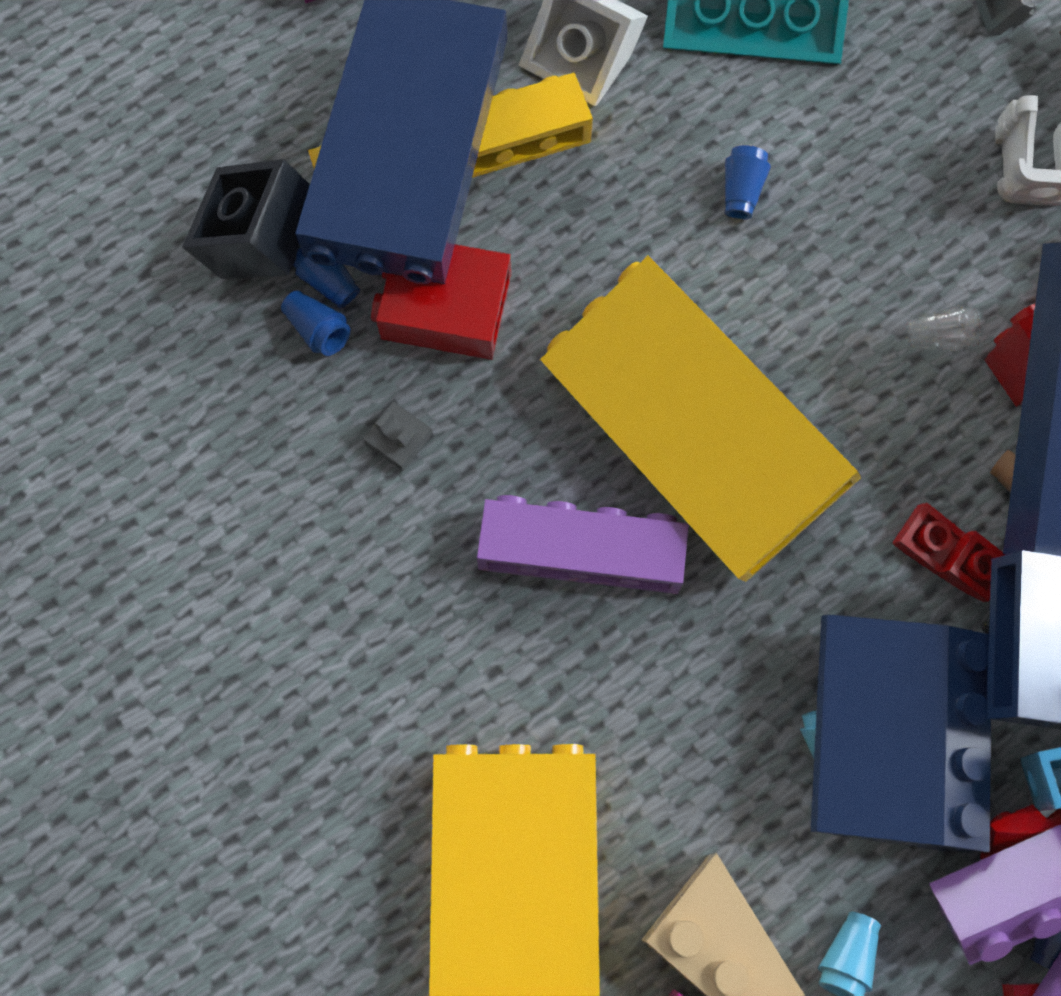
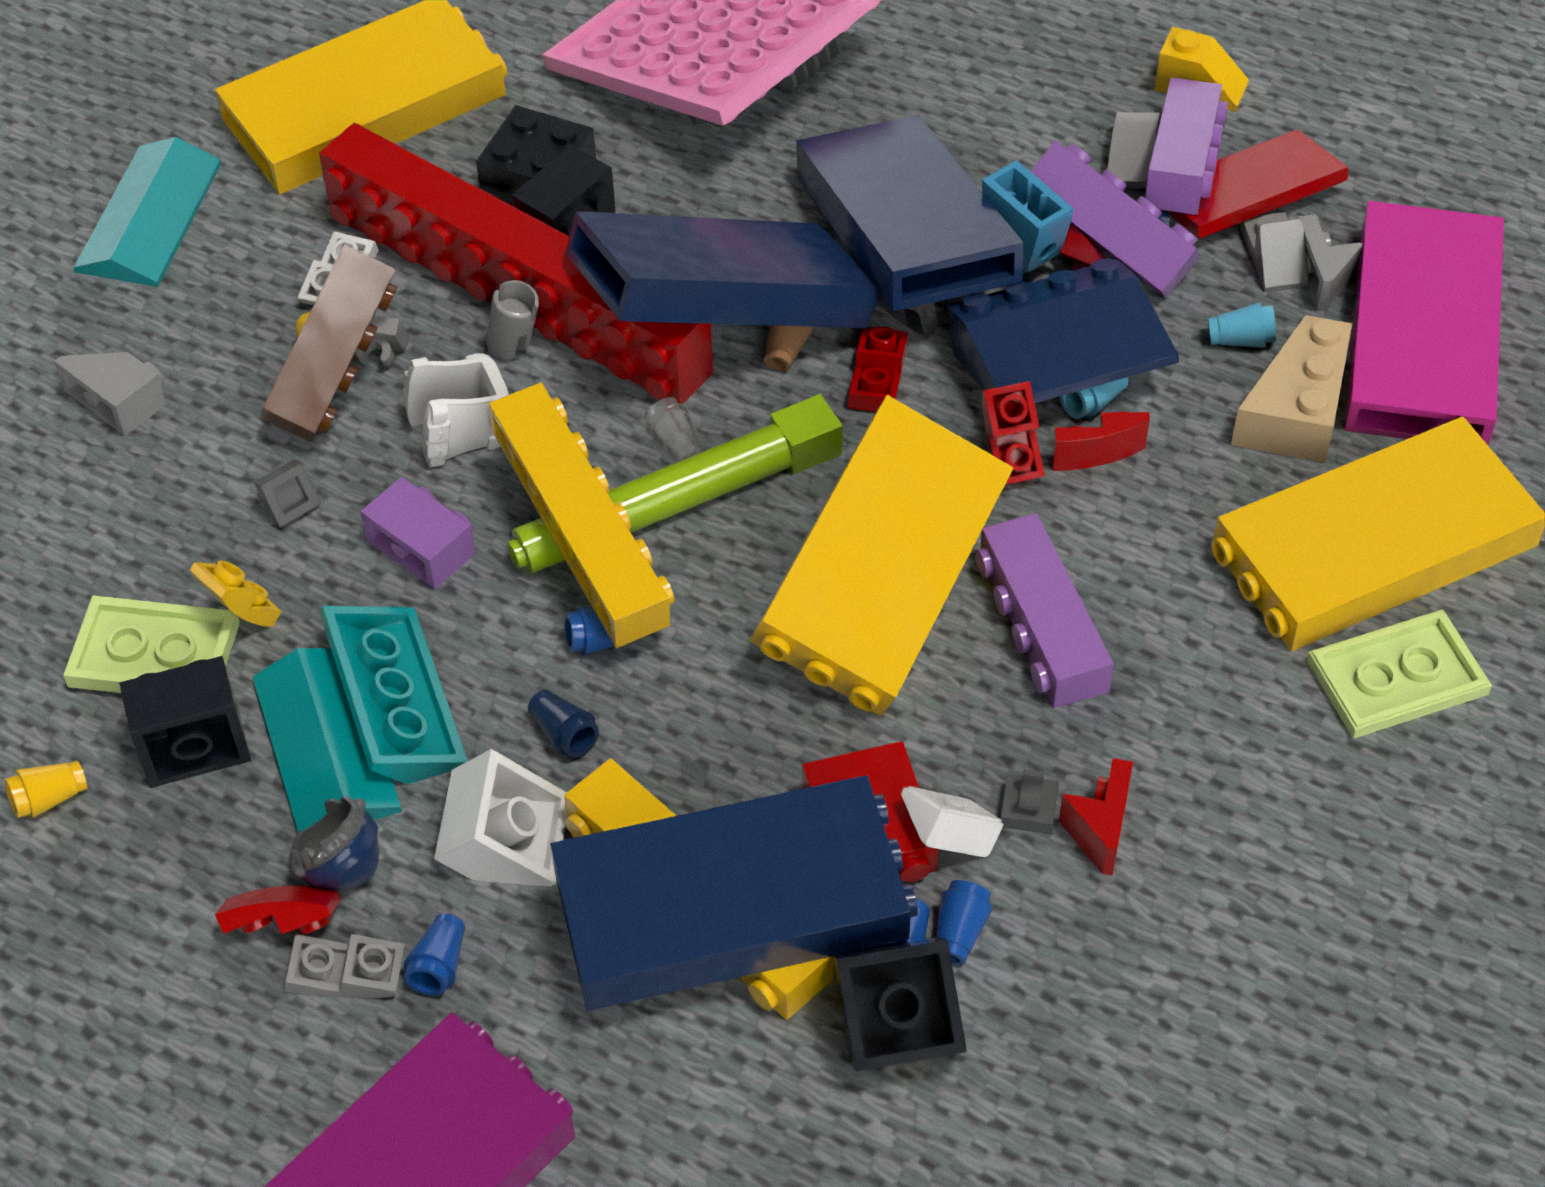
camera: 115 degrees left, 20 degrees down
(335, 471) = (1098, 821): none -> red slope
(355, 844) = (1398, 673): none -> yellowish green tile
(398, 344) = (952, 822): none -> white slope
(660, 117) = (564, 723): none -> dark blue cone
(757, 723) = (1117, 438): none -> red slope
(793, 615) = (1010, 430): none -> red slope
(859, 176) = (581, 515): none -> yellow brick
(888, 419) = (793, 441): none -> lime brick
(915, 82) = (418, 532): none -> medium lavender brick

